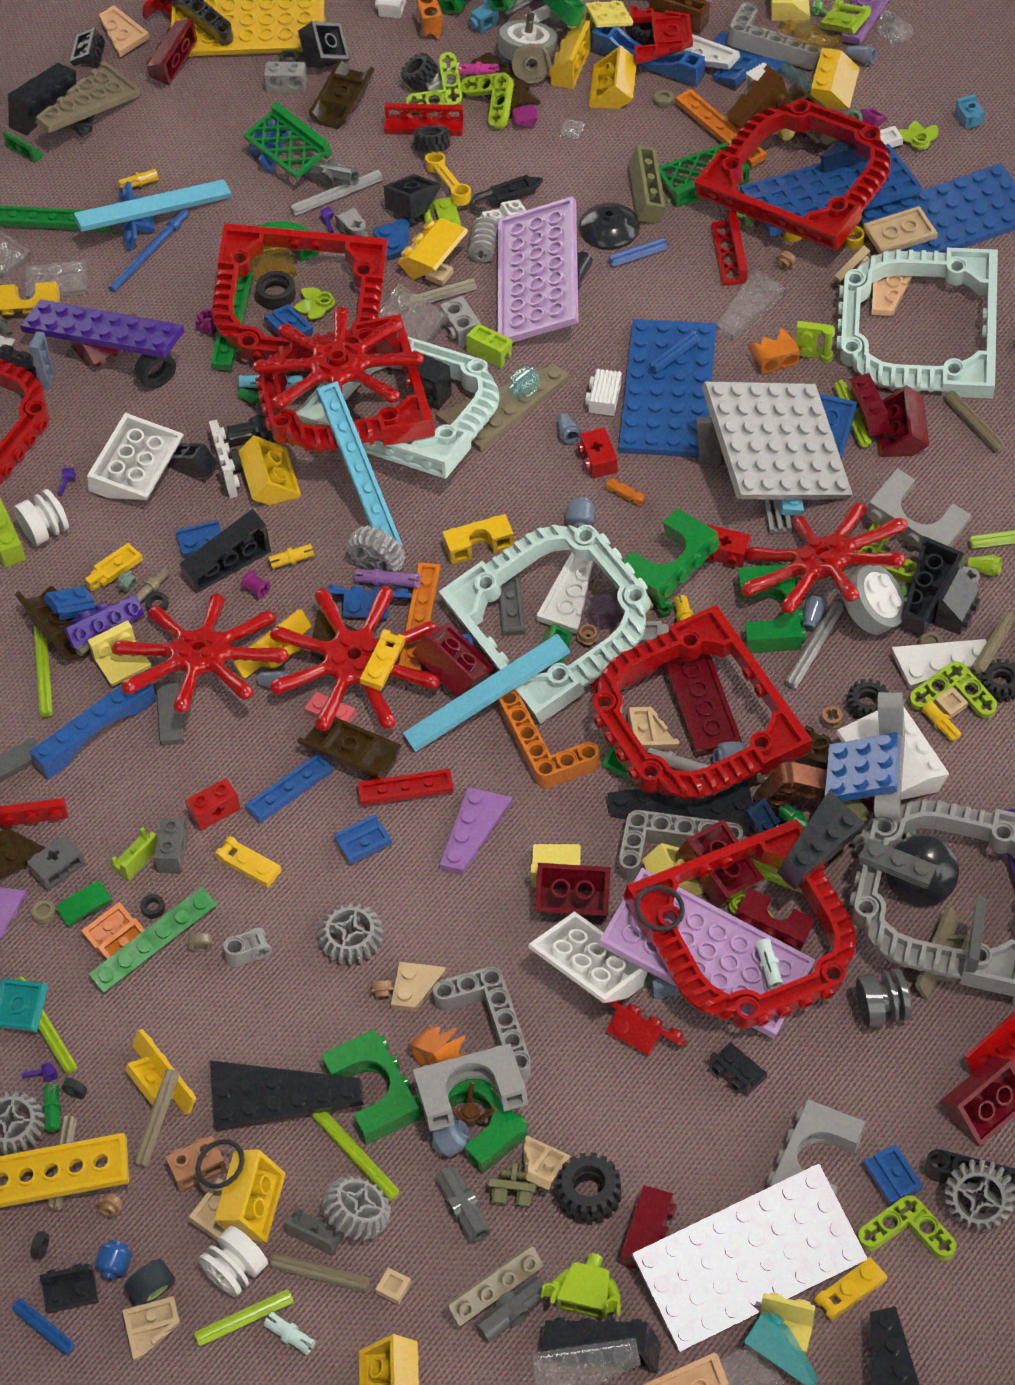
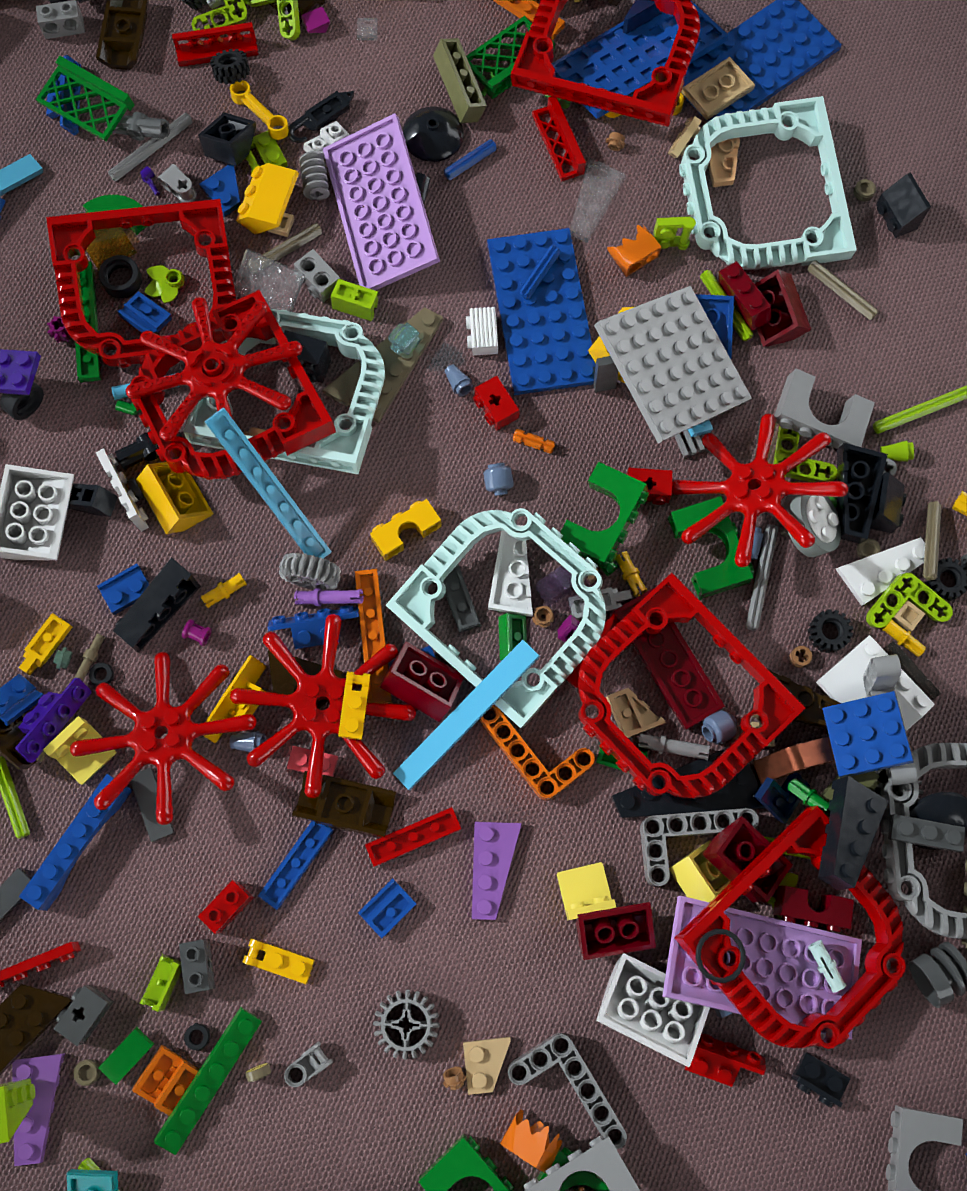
camera: 20 degrees left, 20 degrees up
(939, 747) = (913, 671): none -> clear smoke tile

